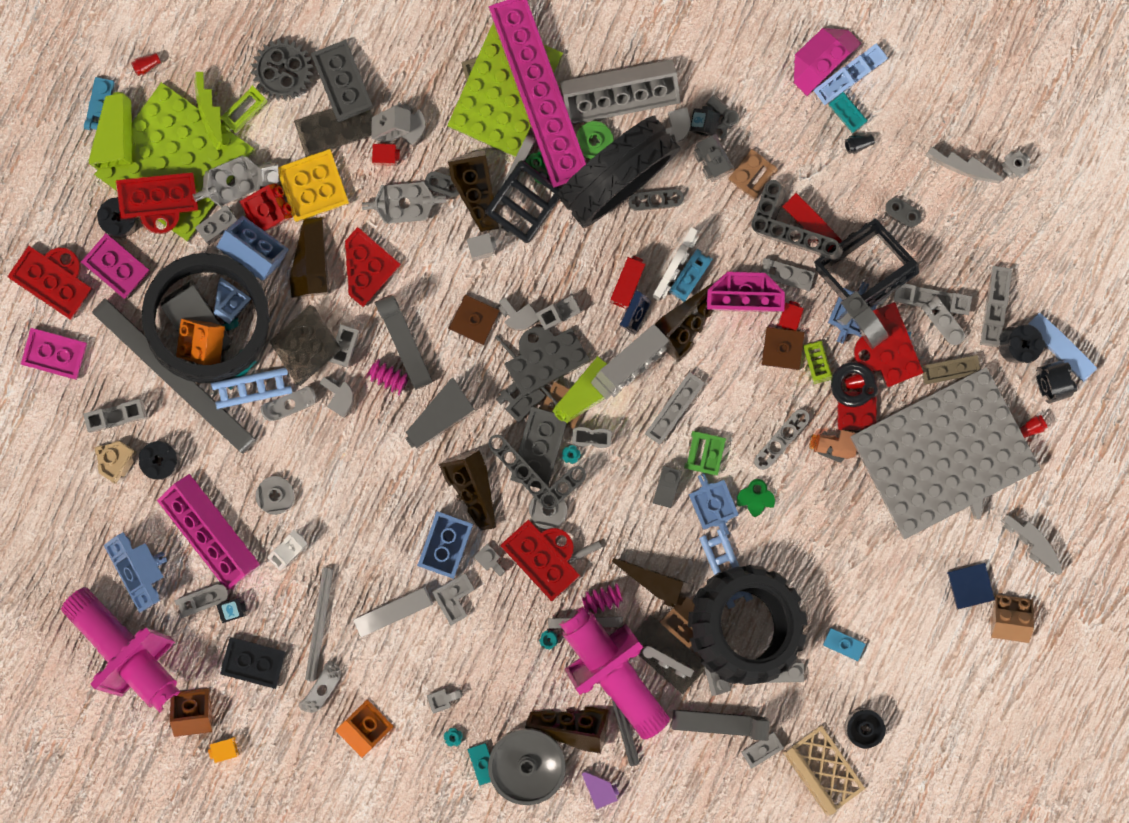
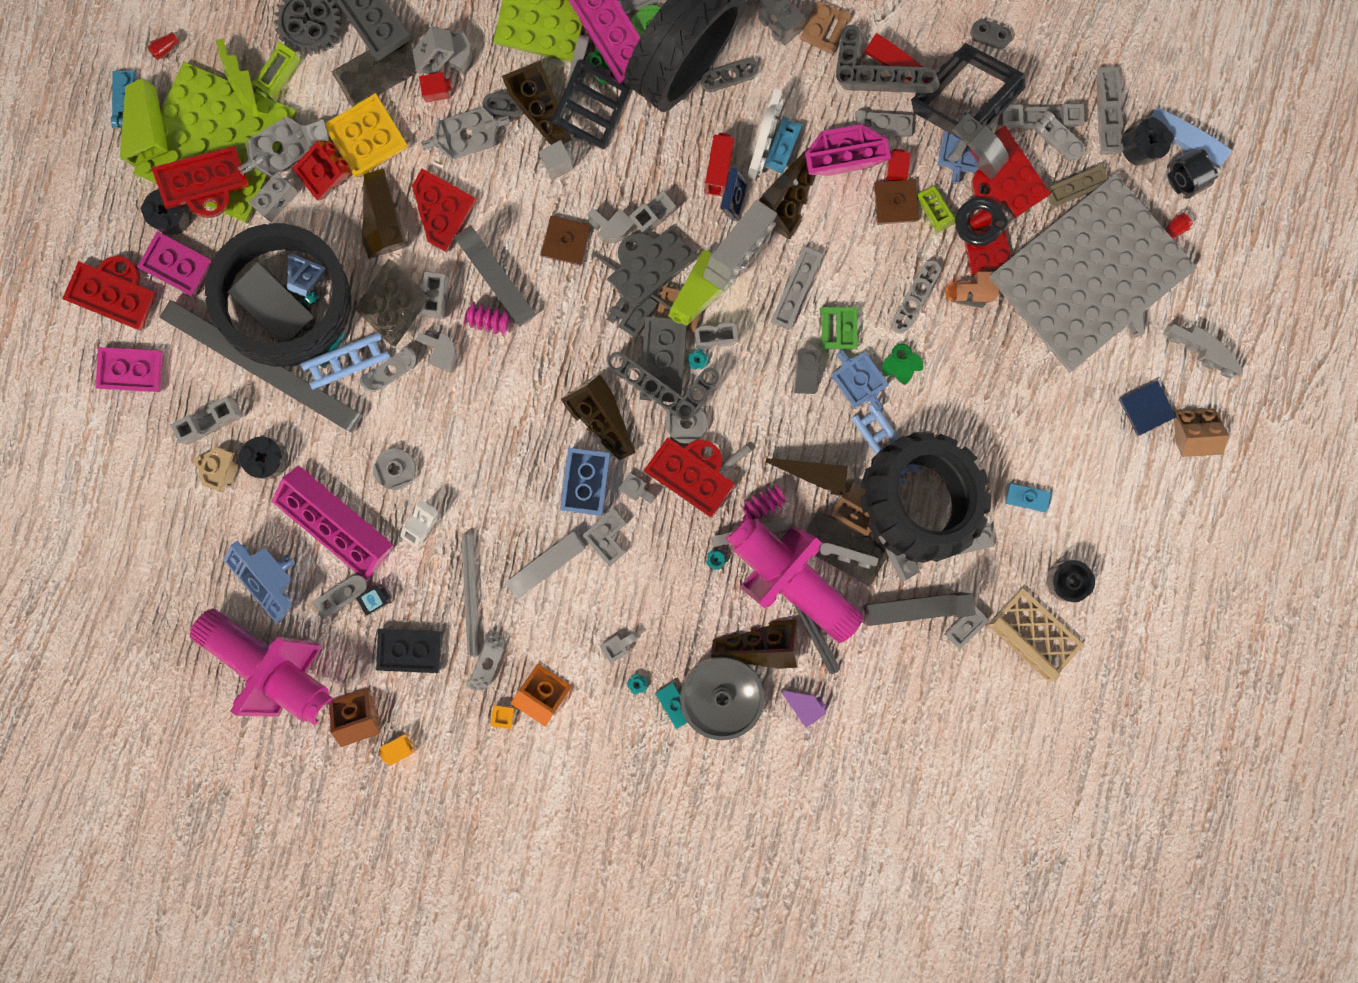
camera: 15 degrees left, 0 degrees up
(200, 341) = (278, 320): orange slope -> none
(252, 248) = (314, 211): medium blue brick -> none
(325, 740) = (502, 716): none -> light orange plate
(441, 414) = (551, 346): dark grey slope -> none

